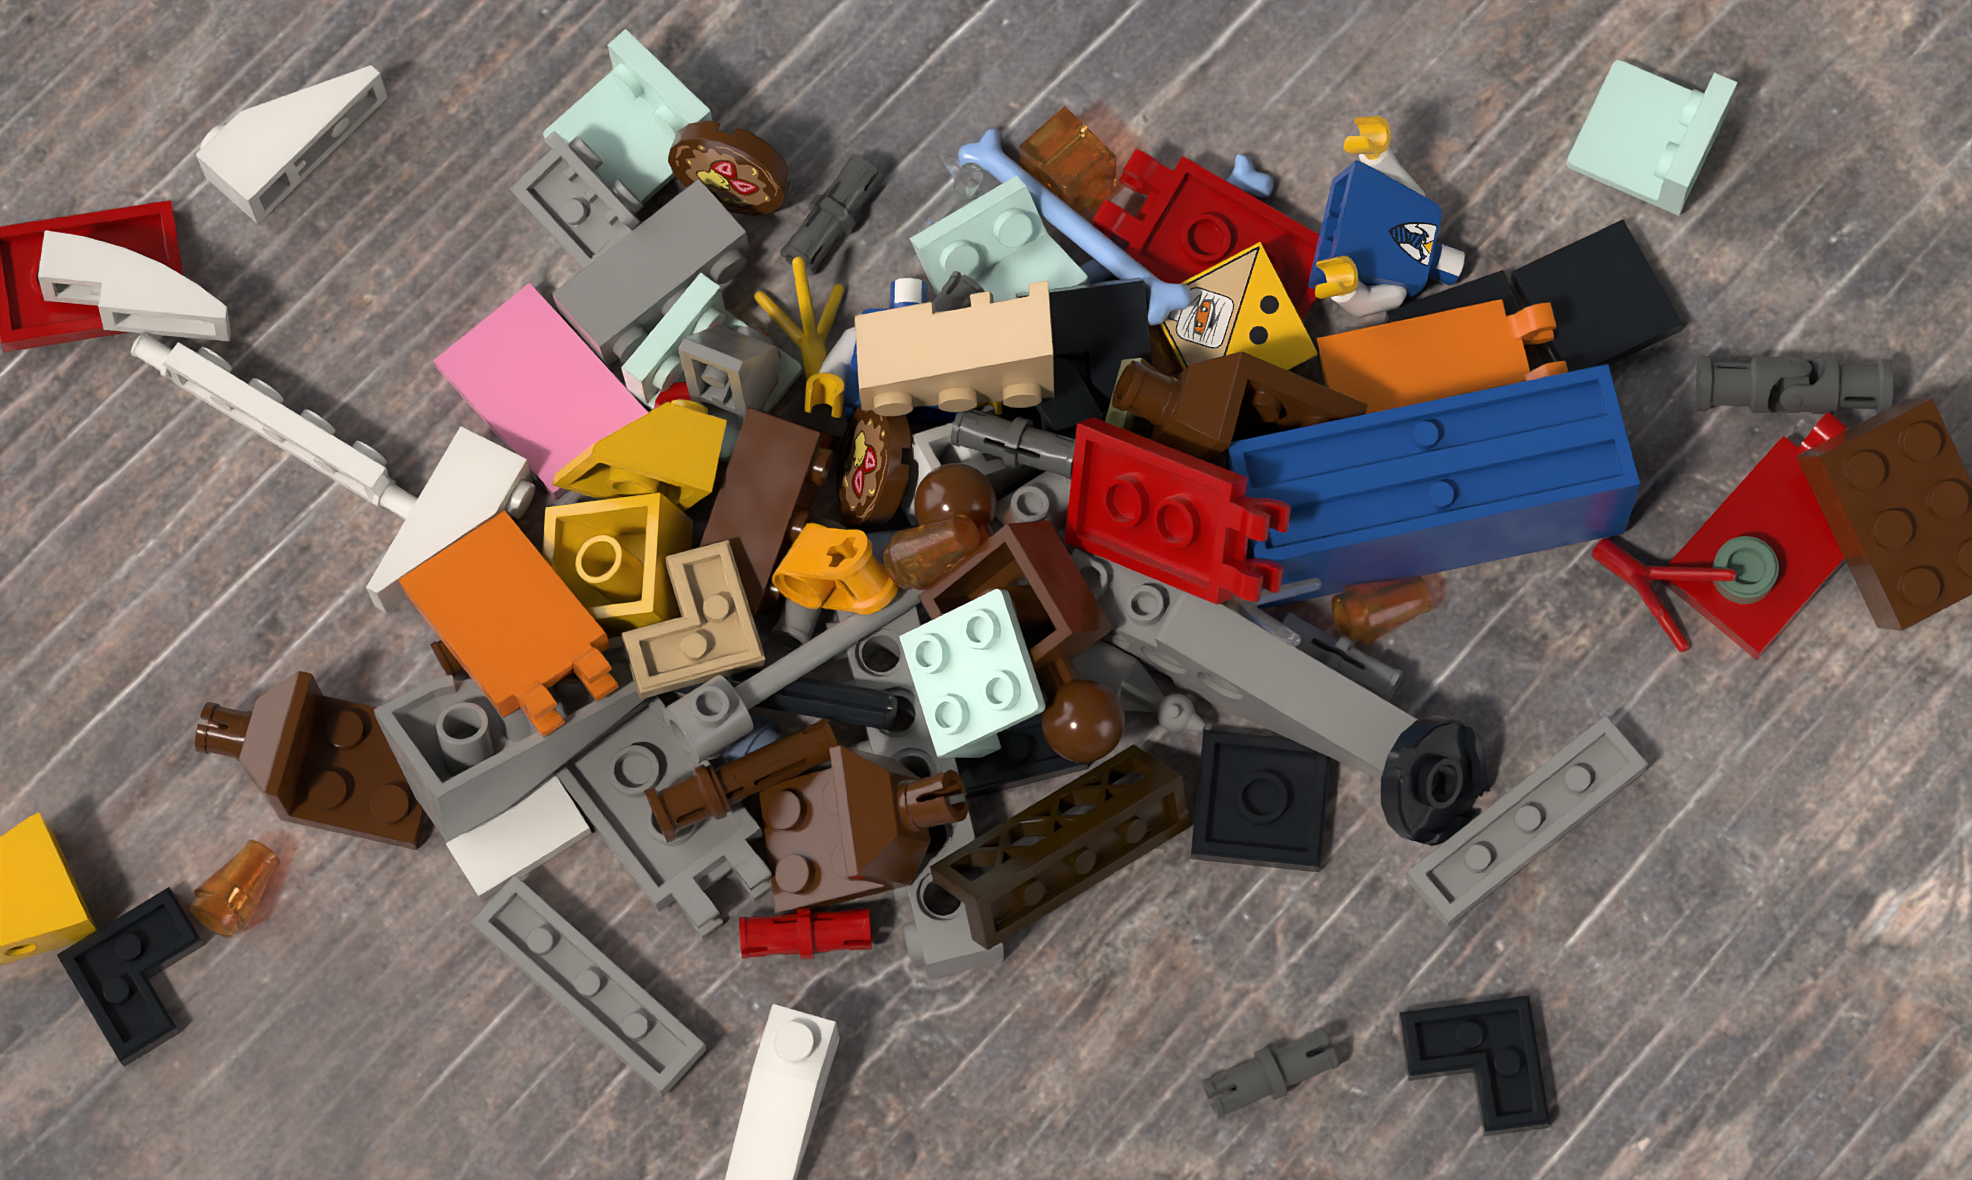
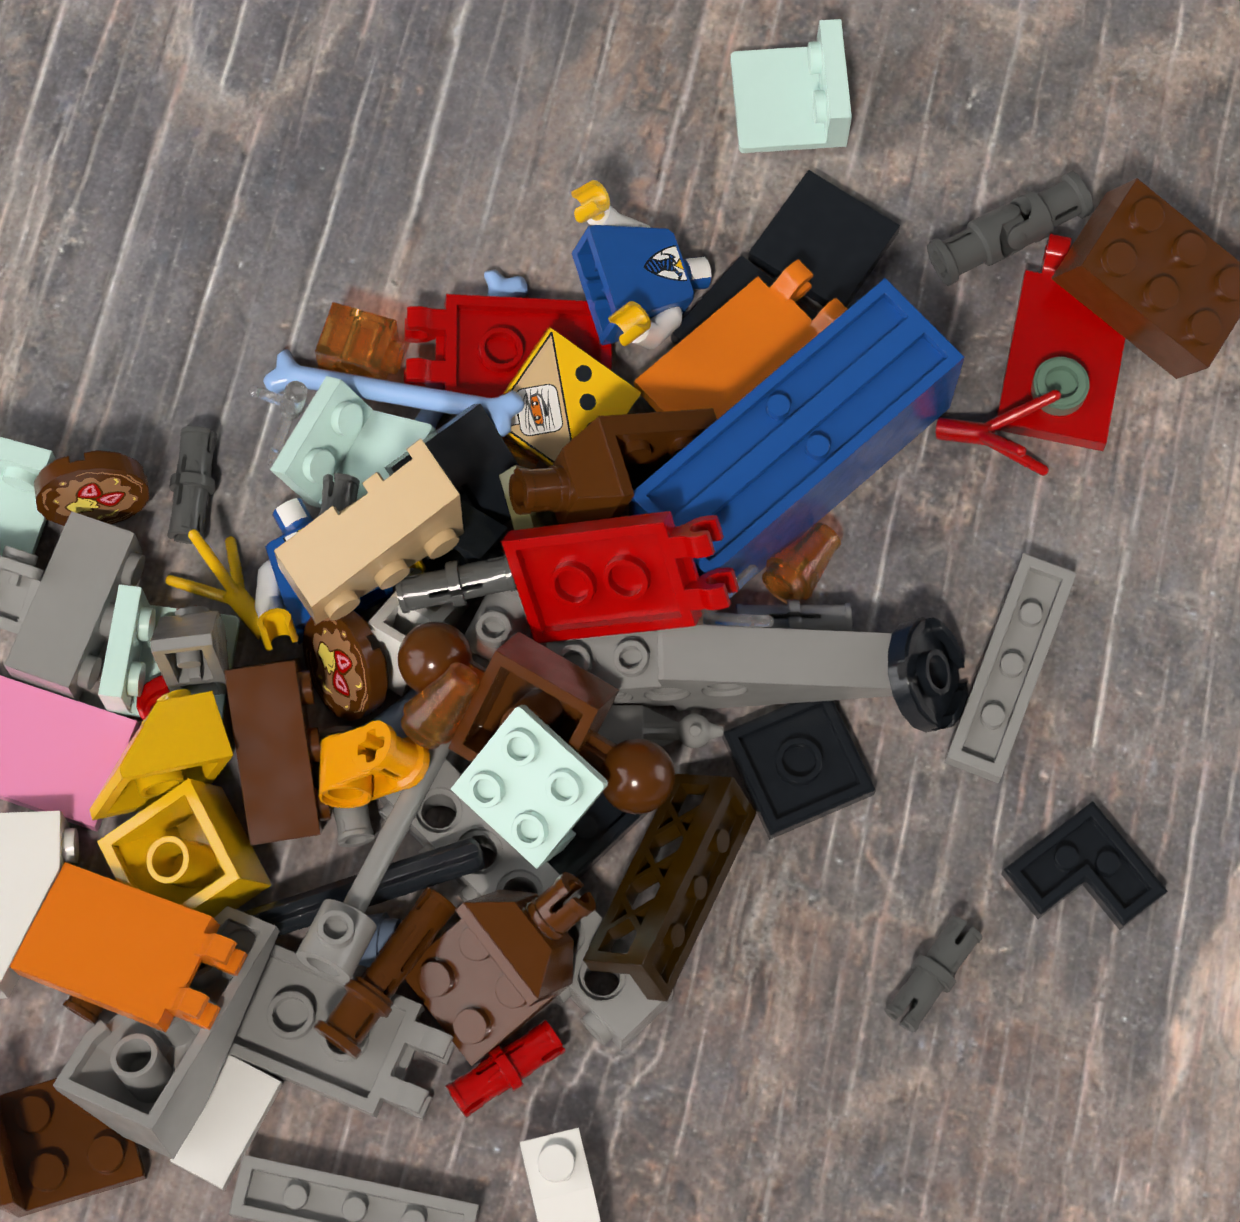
camera: 35 degrees left, 0 degrees up
(709, 638) = (297, 867): tan tile -> none

